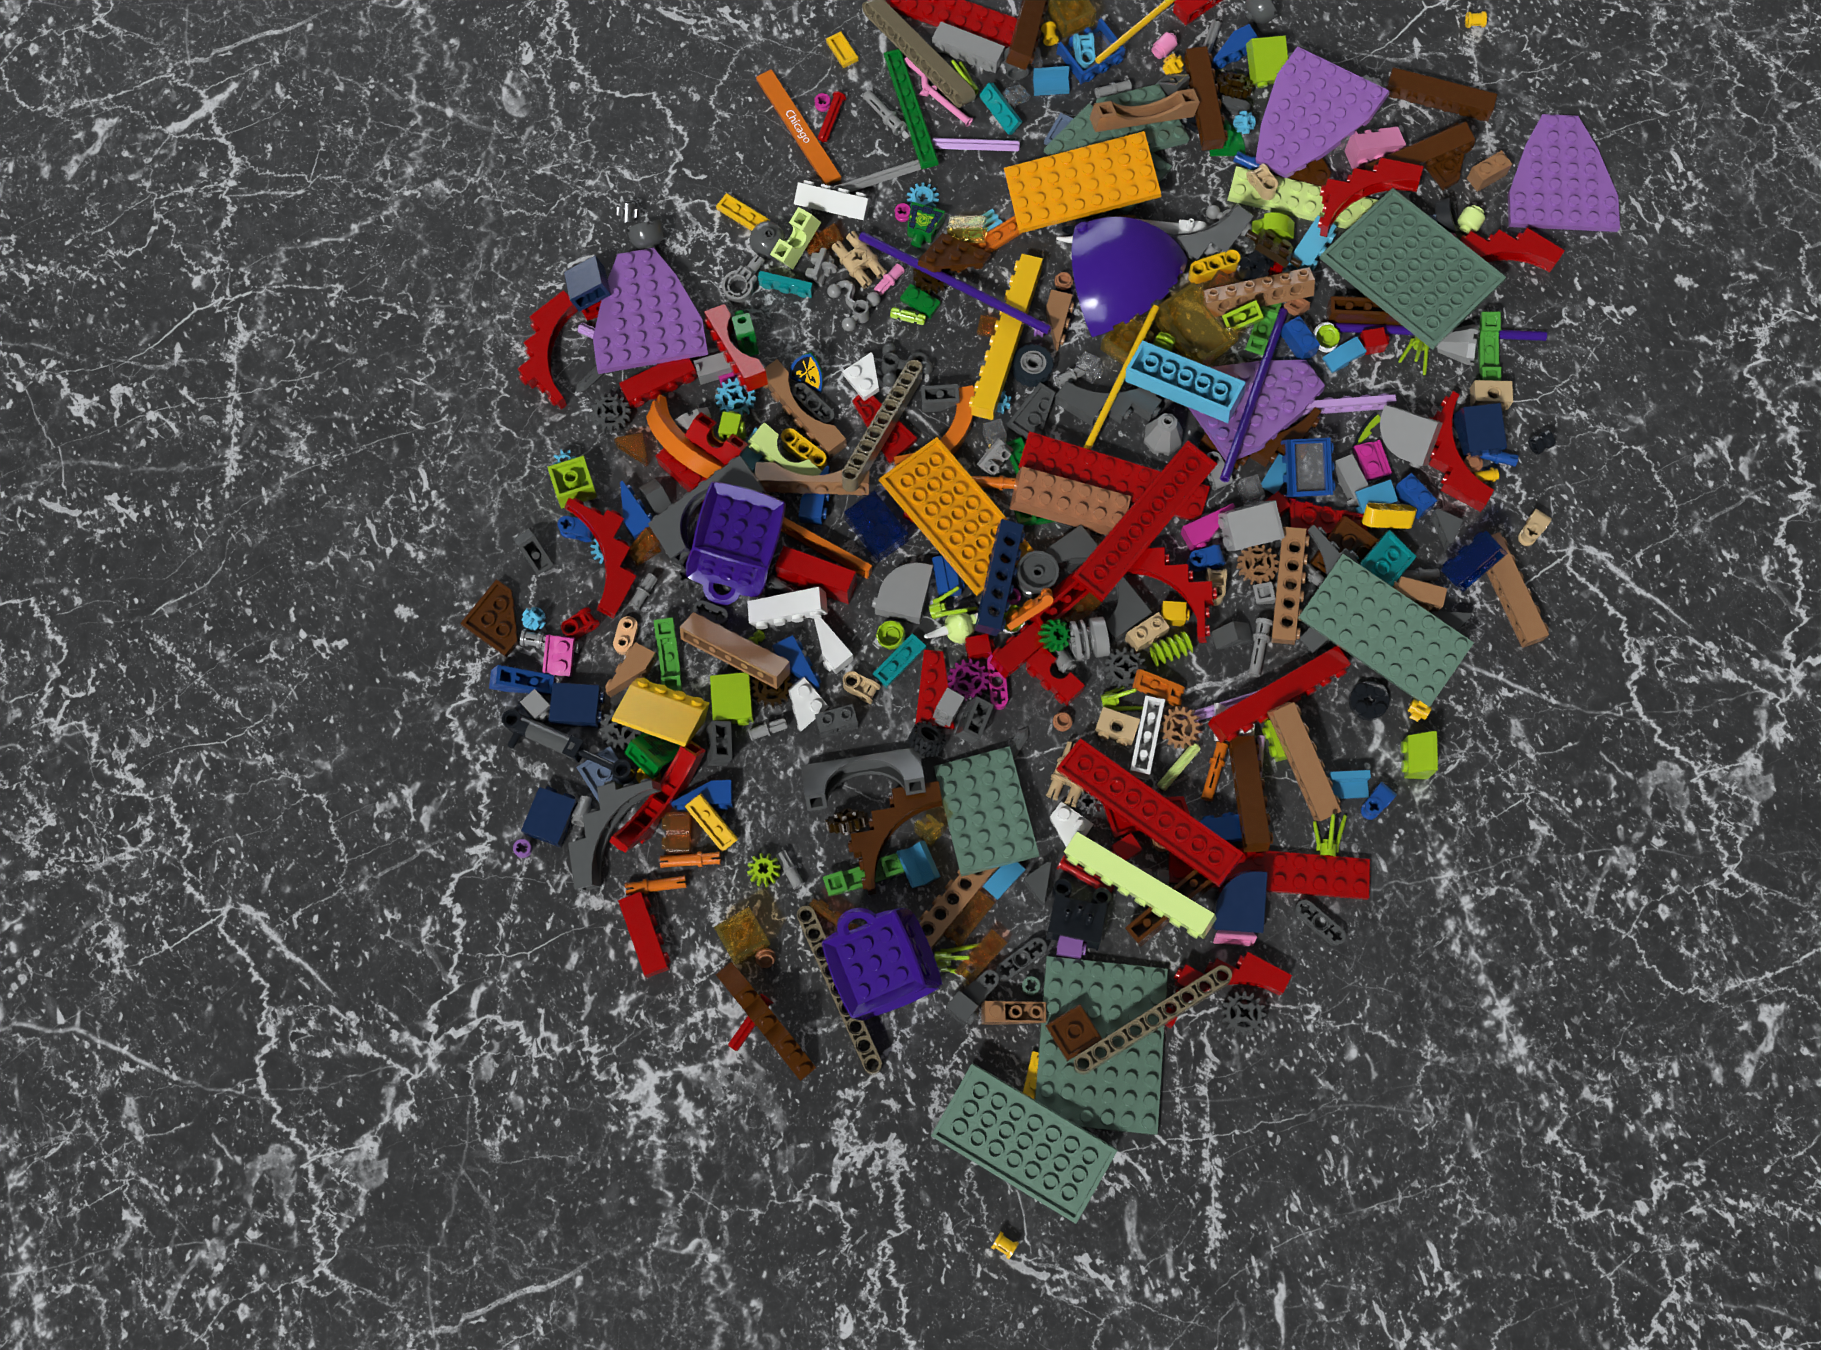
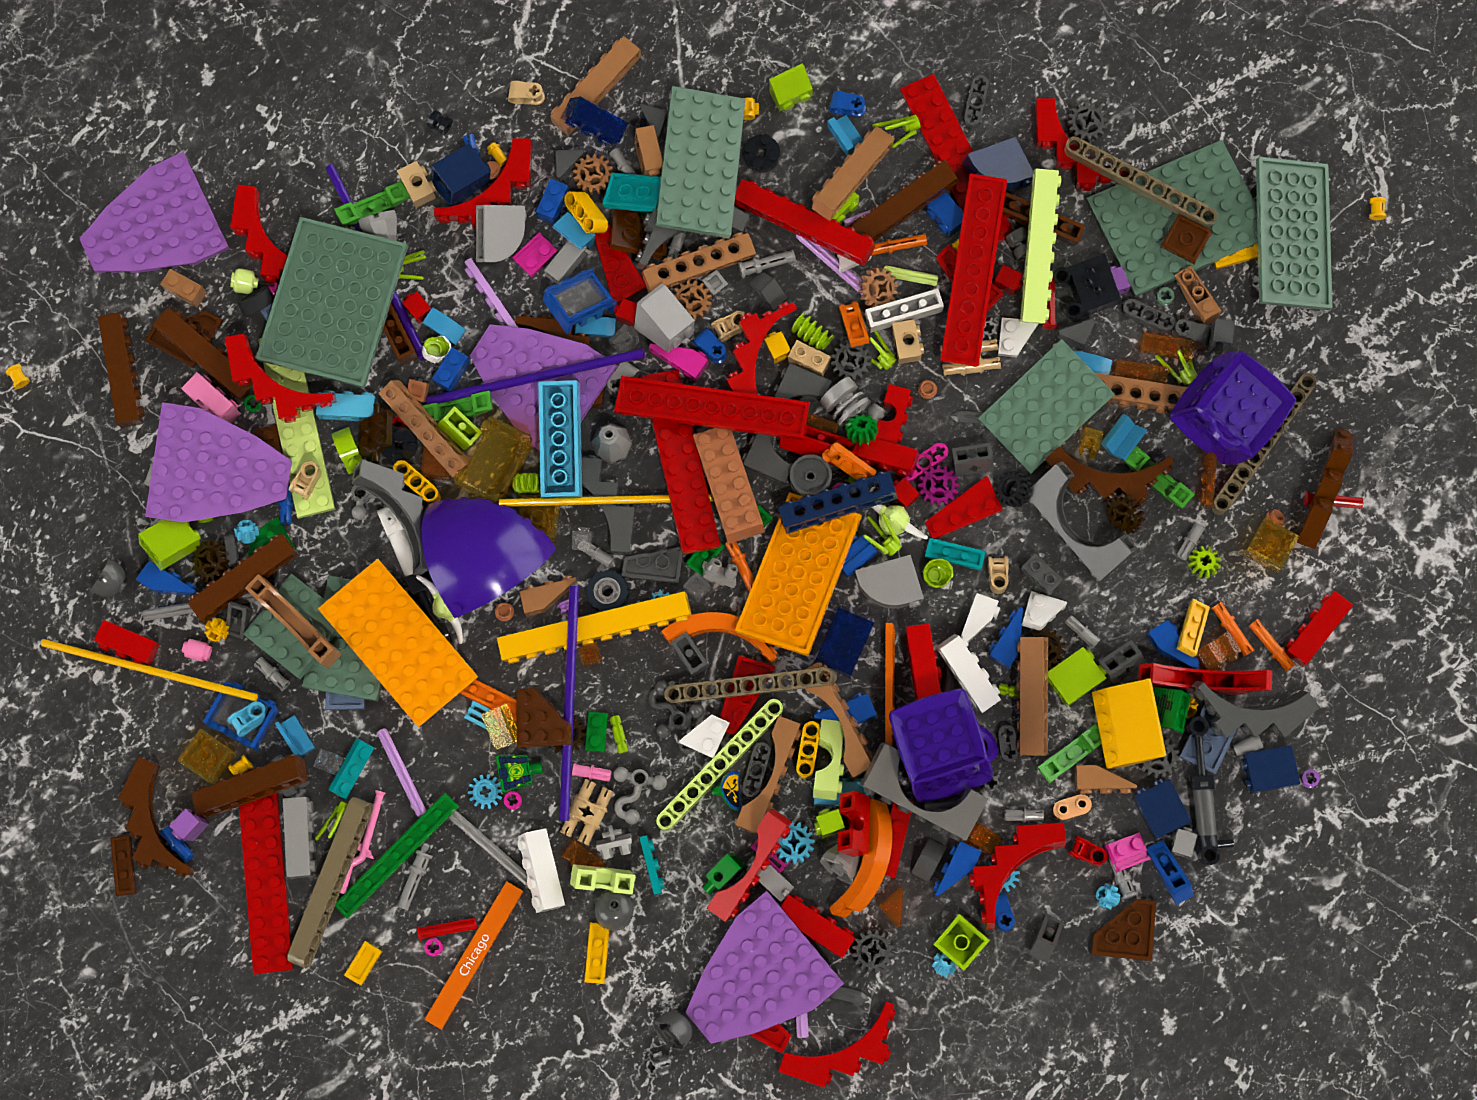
camera: 115 degrees left, 5 degrees up
(587, 283) = (759, 1051): dark blue brick -> none
(740, 274) = (654, 907): light grey pin -> none
(830, 369) = (716, 774): none -> yellowish green beam
(948, 707) = (979, 482): light grey brick -> none
(1235, 938) = (1028, 155): bright pink tile -> none
(1365, 431) = (508, 275): sticker -> none
(1424, 535) = (592, 166): none -> medium nougat gear

